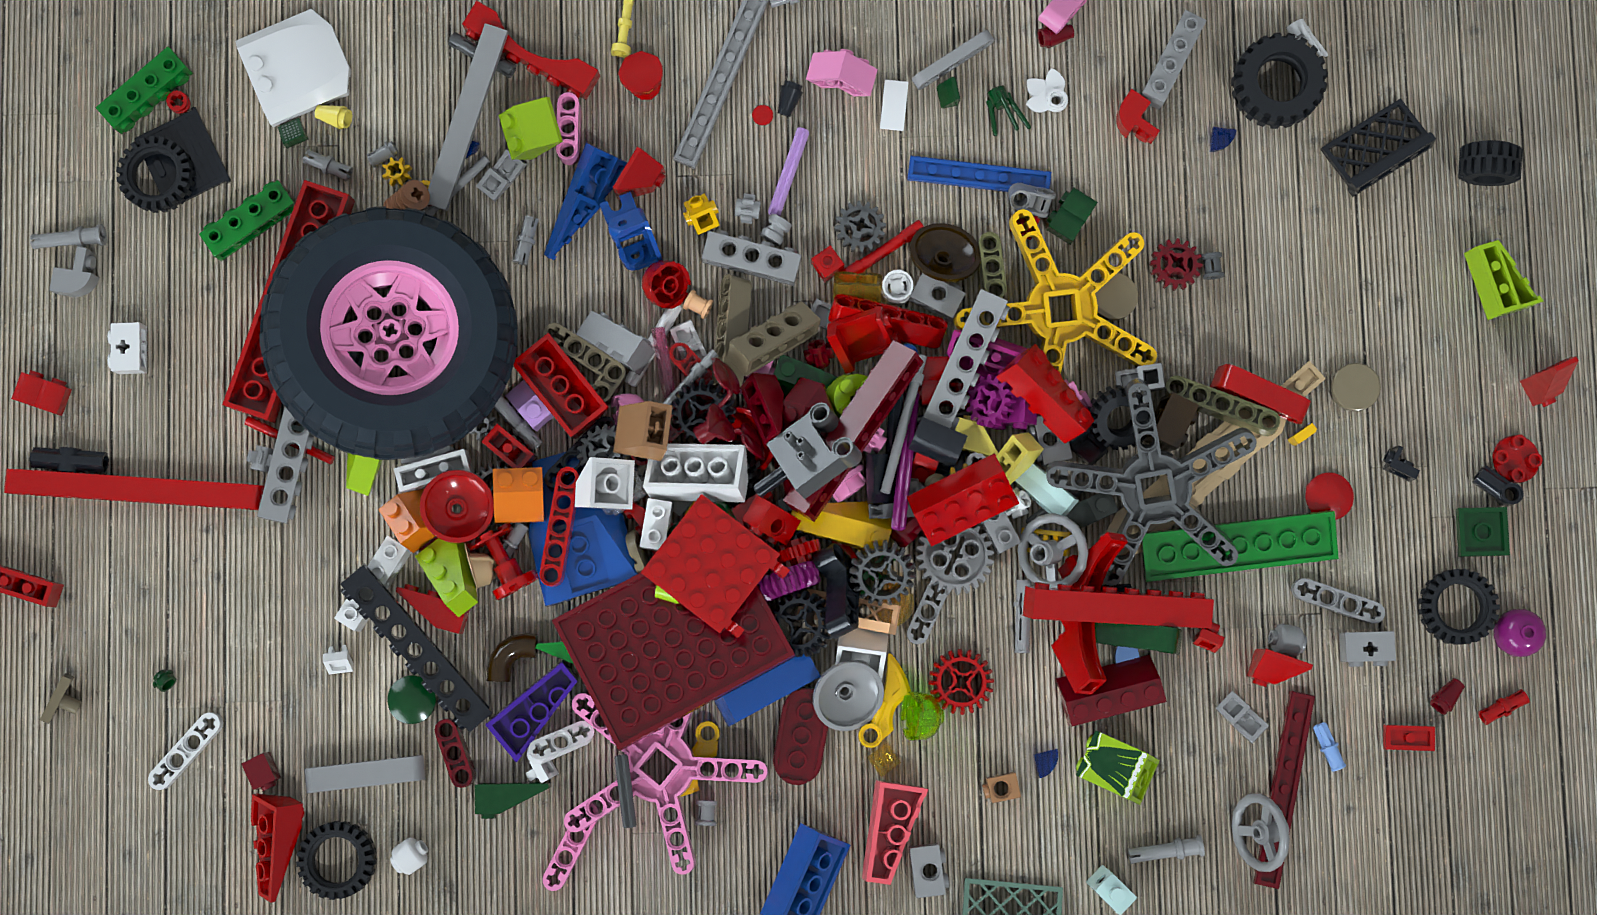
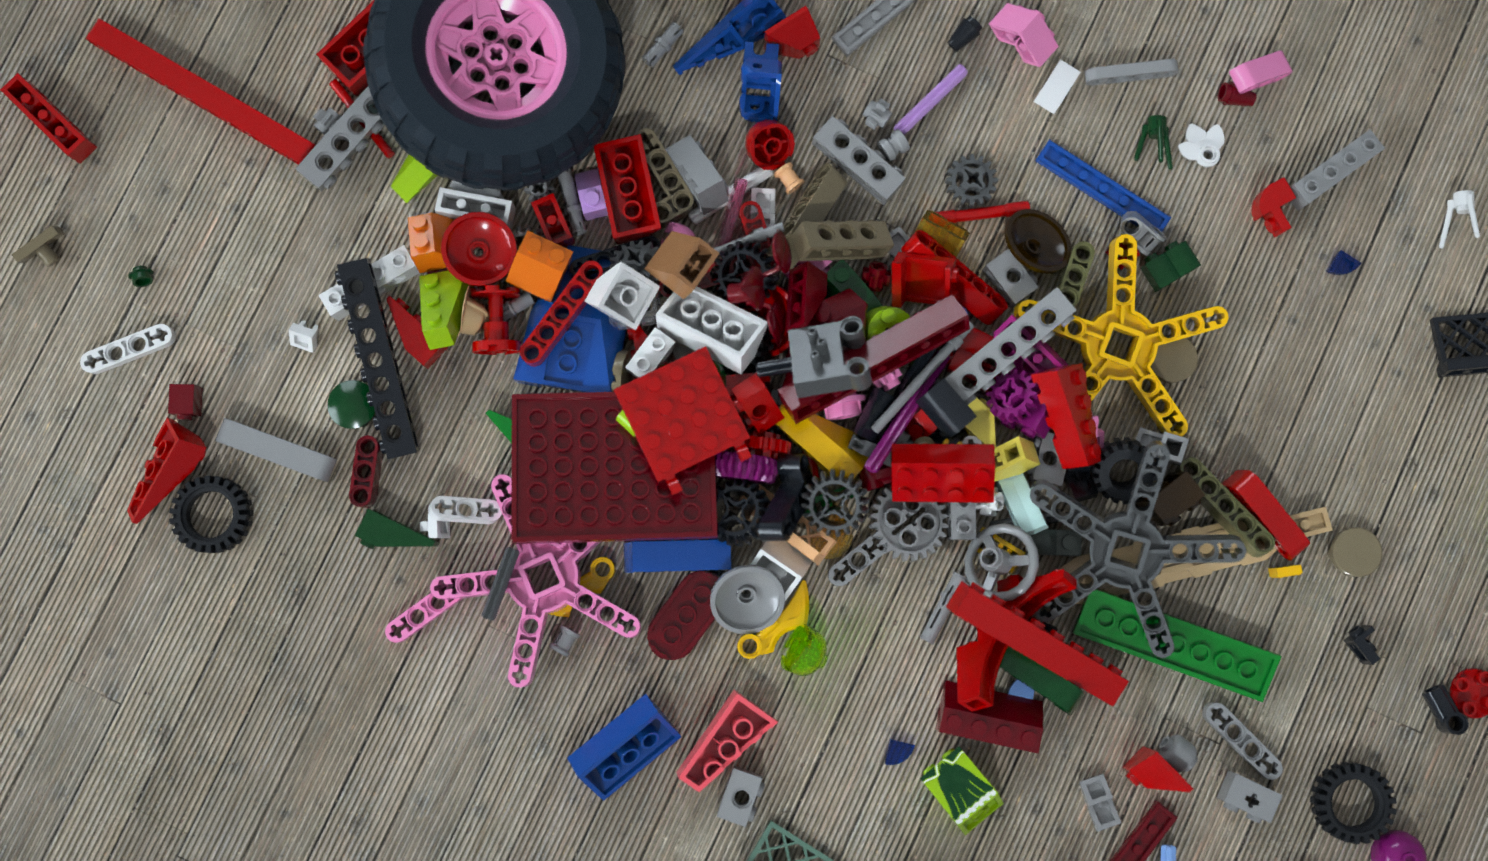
camera: 20 degrees right, 0 degrees up
(69, 460) = (158, 38): black piece -> none
(409, 856) = (277, 543): white head -> none
(507, 653) = (460, 405): dark brown cylinder -> none
(528, 713) = (448, 469): dark purple wedge -> none
(701, 213) = (833, 97): yellow brick -> none
(762, 115) = (932, 38): red sticker -> none
(827, 263) = (924, 198): red brick -> none
(883, 760) = (750, 674): clear yellow tile -> none
(897, 287) = (978, 251): white wheel -> none
(948, 93) = (1112, 100): dark green slope -> none
(974, 698) = (878, 634): red gear -> none
(1012, 787) = (856, 759): medium nougat brick -> none
(1170, 257) = (1246, 367): dark red gear -> none
(1209, 638) = (1106, 715): red tile -> none
(1217, 272) = (1272, 381): dark grey bush -> none
(1301, 59) = (1447, 214): black tyre -> none
(1329, 492) = (1283, 637): red dish -> none
(1482, 532) = (1409, 744): dark green plate -> none

